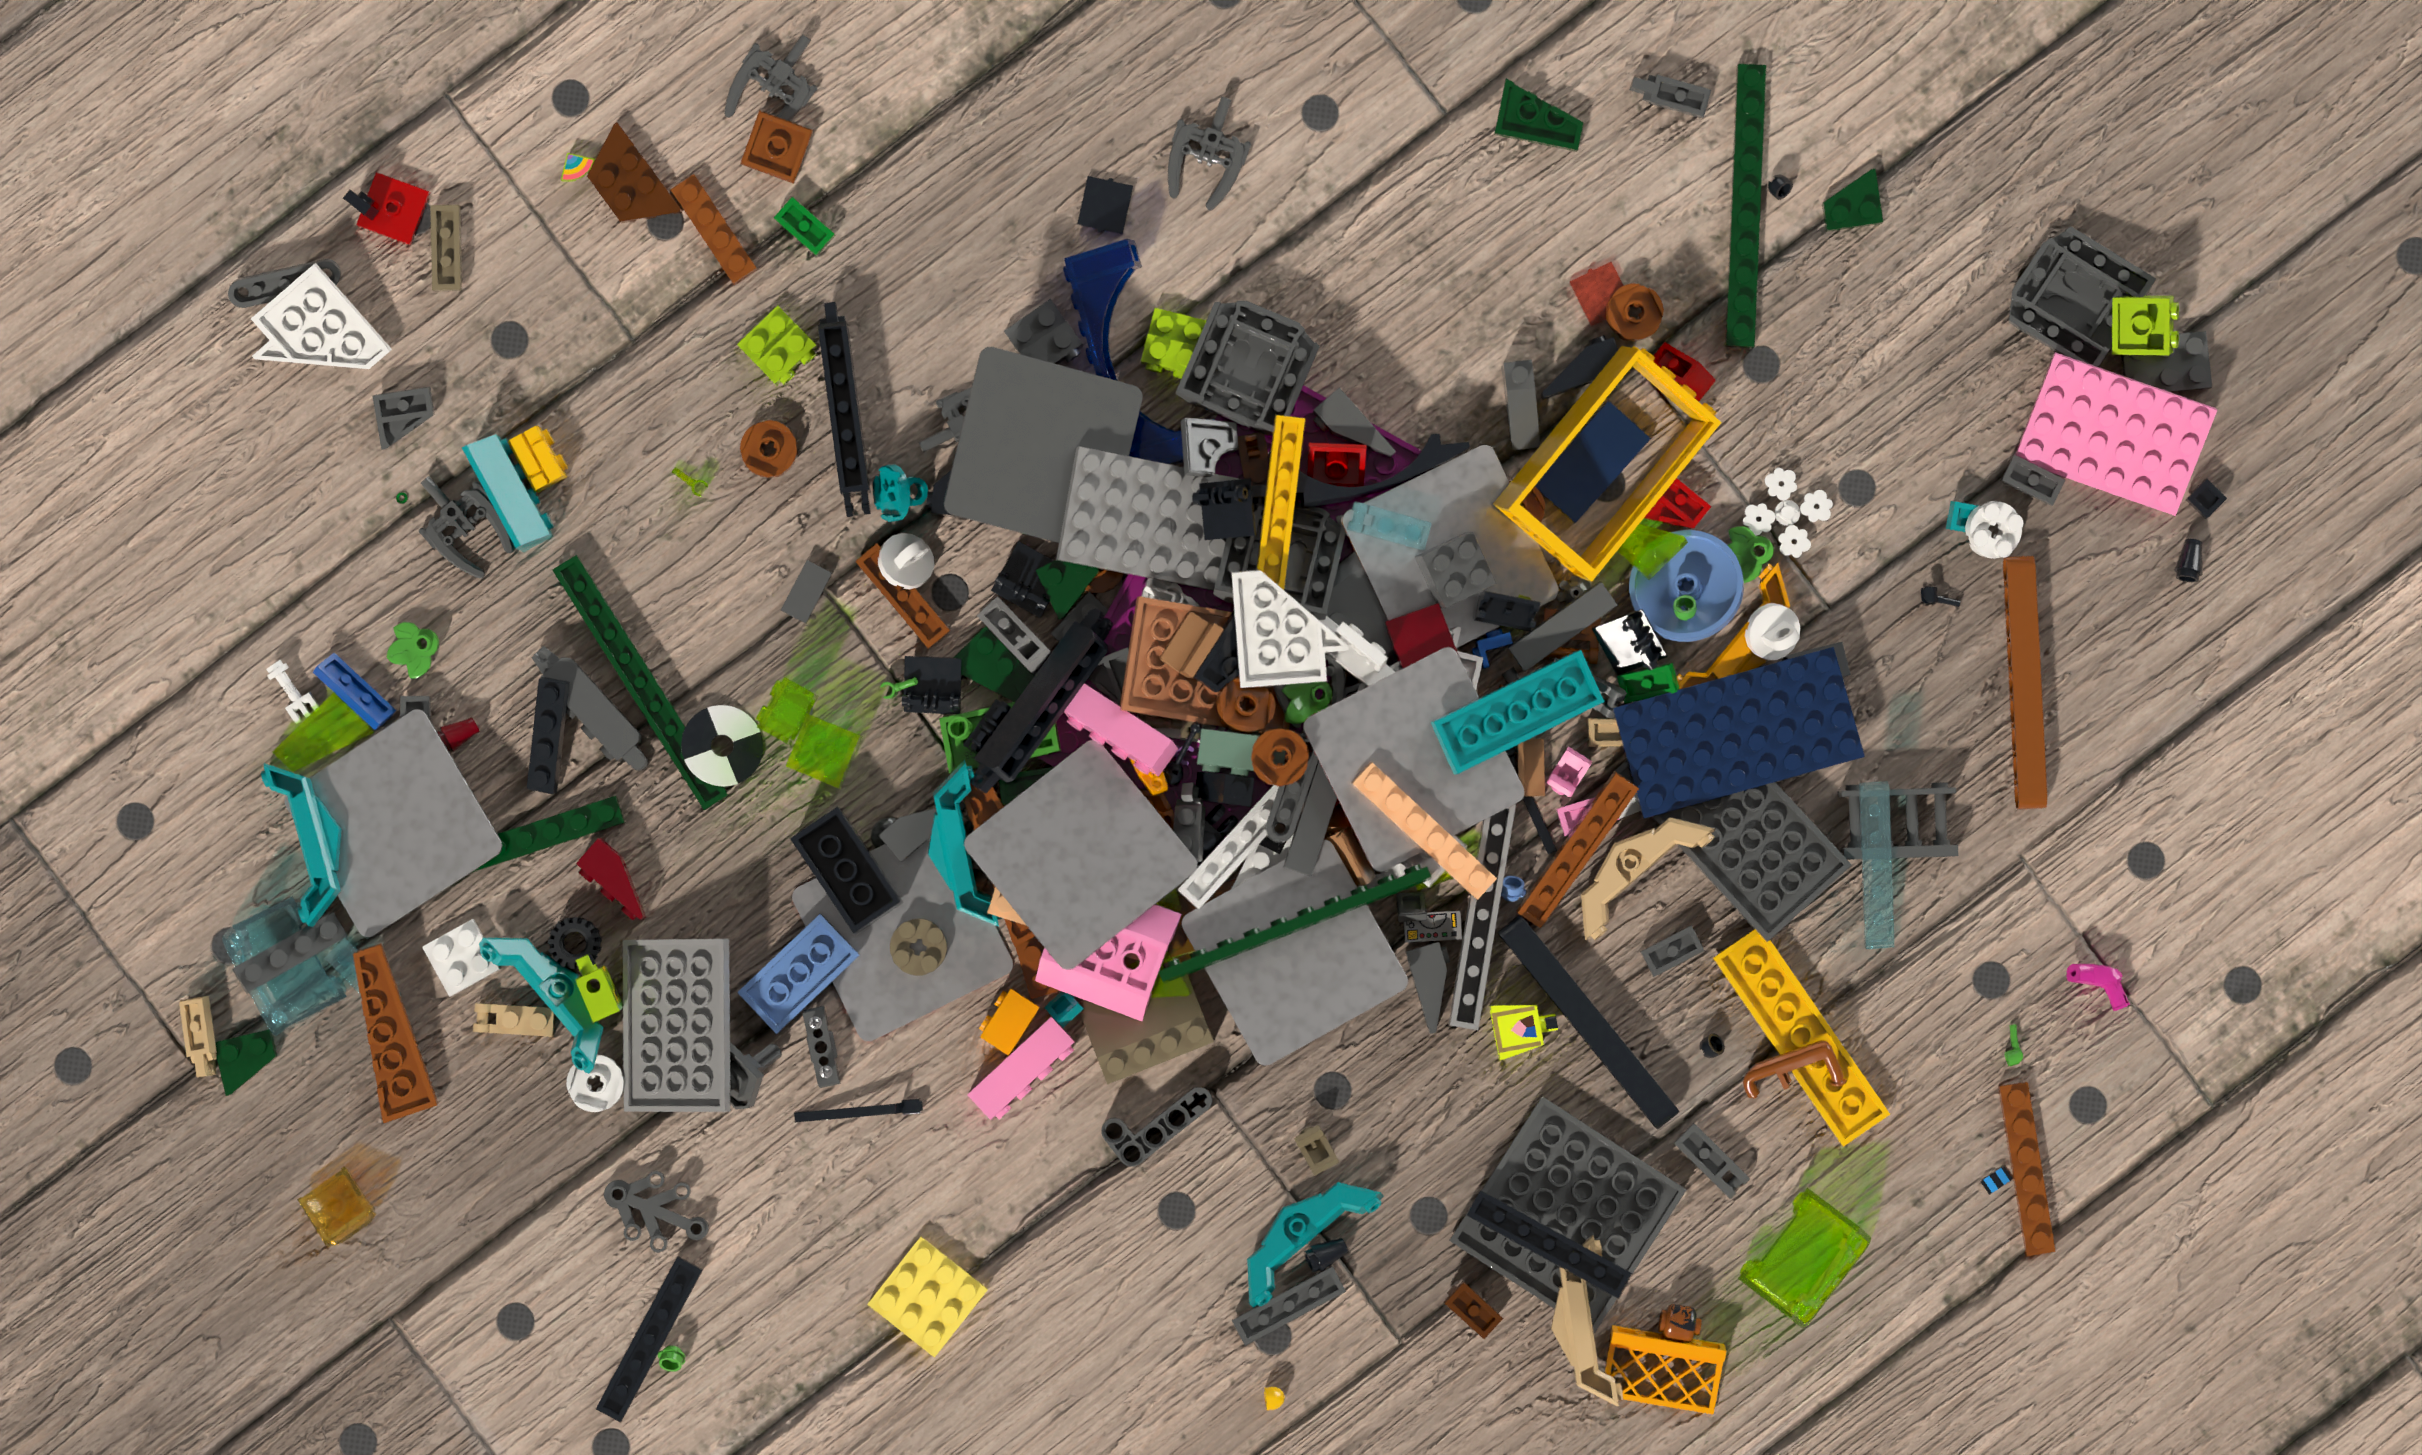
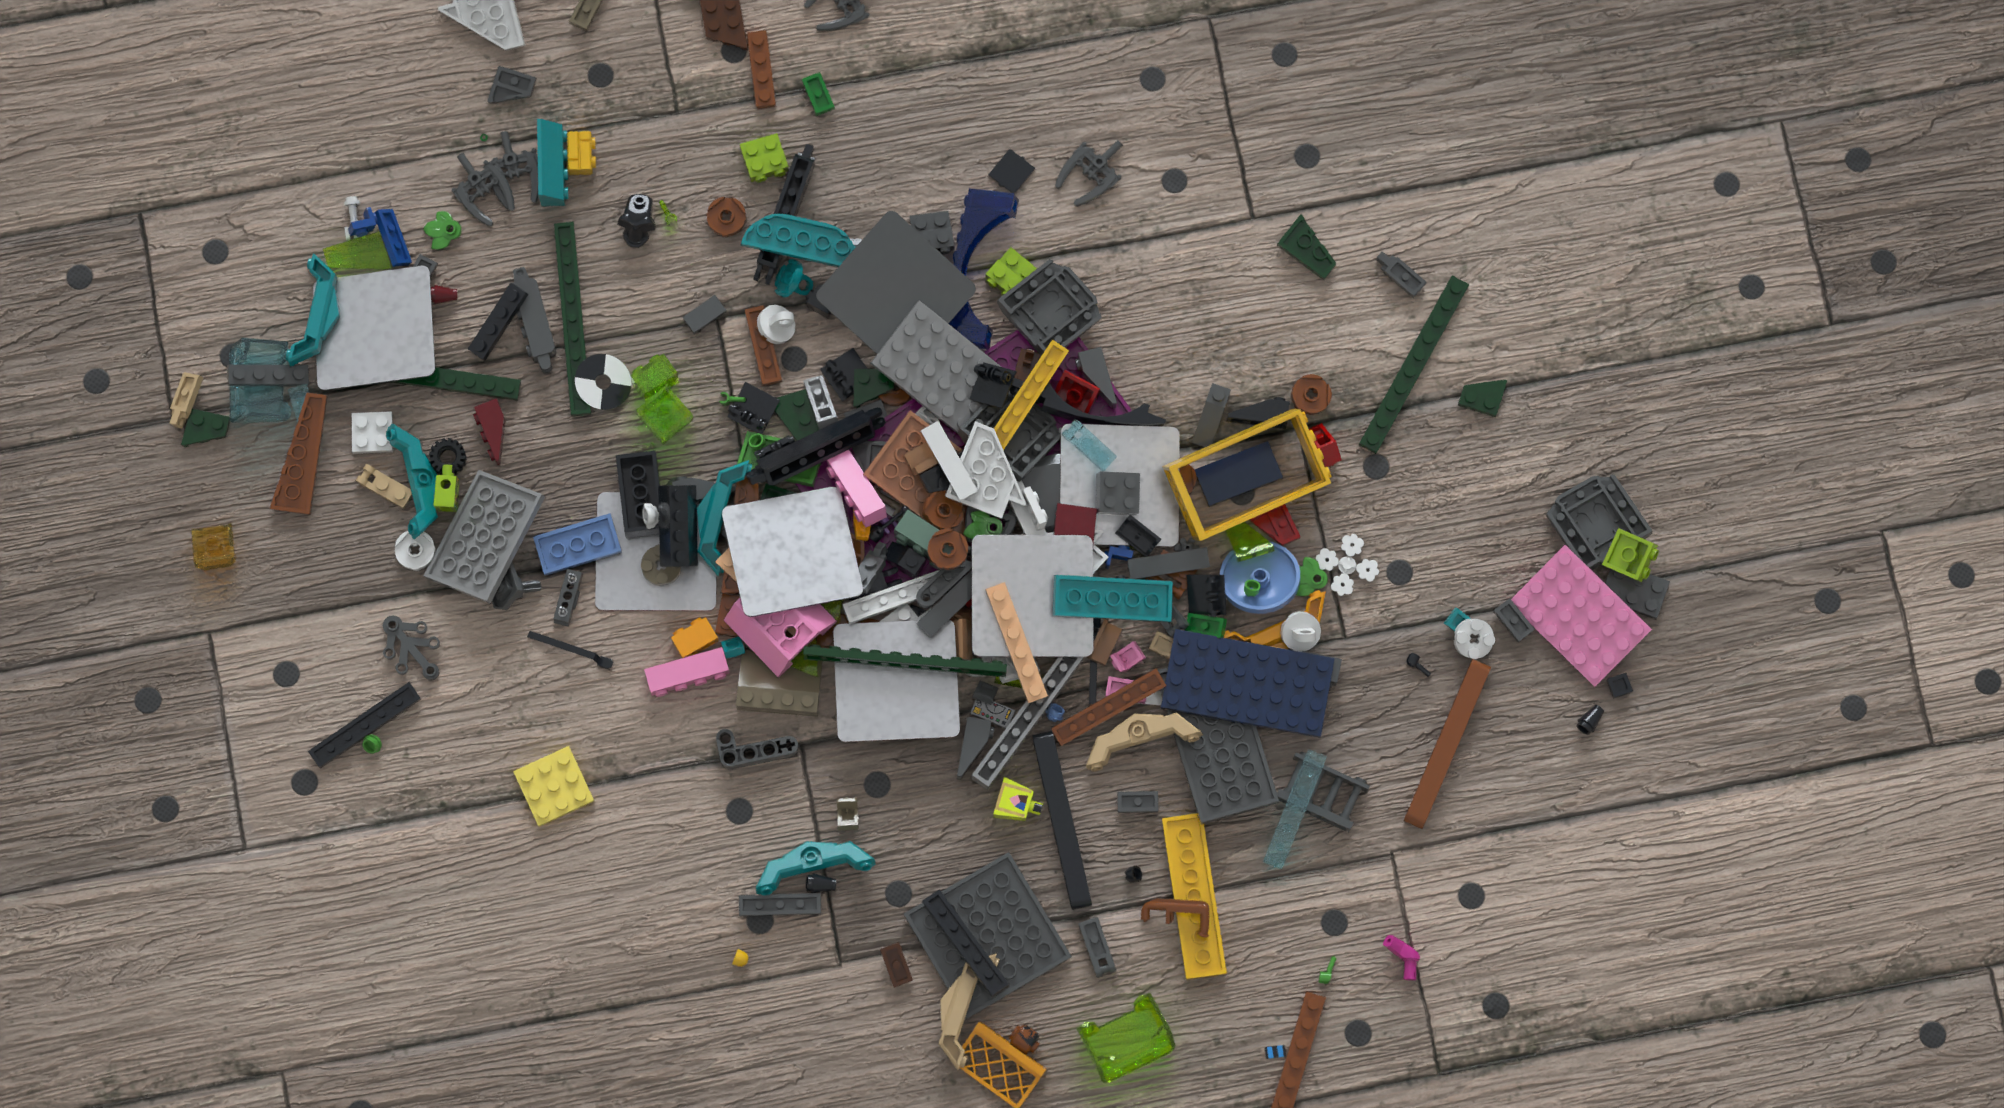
camera: 25 degrees right, 10 degrees down
(309, 700) = (364, 226): none -> blue bracket
(423, 561) = (477, 181): none -> dark grey bar
(657, 511) = (637, 220): none -> black head
(776, 147) = (825, 38): dark orange tile -> none
(875, 896) = (650, 515): none -> white piece
(883, 437) = (799, 239): none -> teal plate
(917, 891) = (678, 526): none -> black slope
(1205, 443) = (1000, 340): tile -> none
(1224, 641) = (949, 461): none -> white tile
(1595, 290) = (1293, 369): clear red piece -> none
(1780, 186) = (1443, 366): black hinge -> none

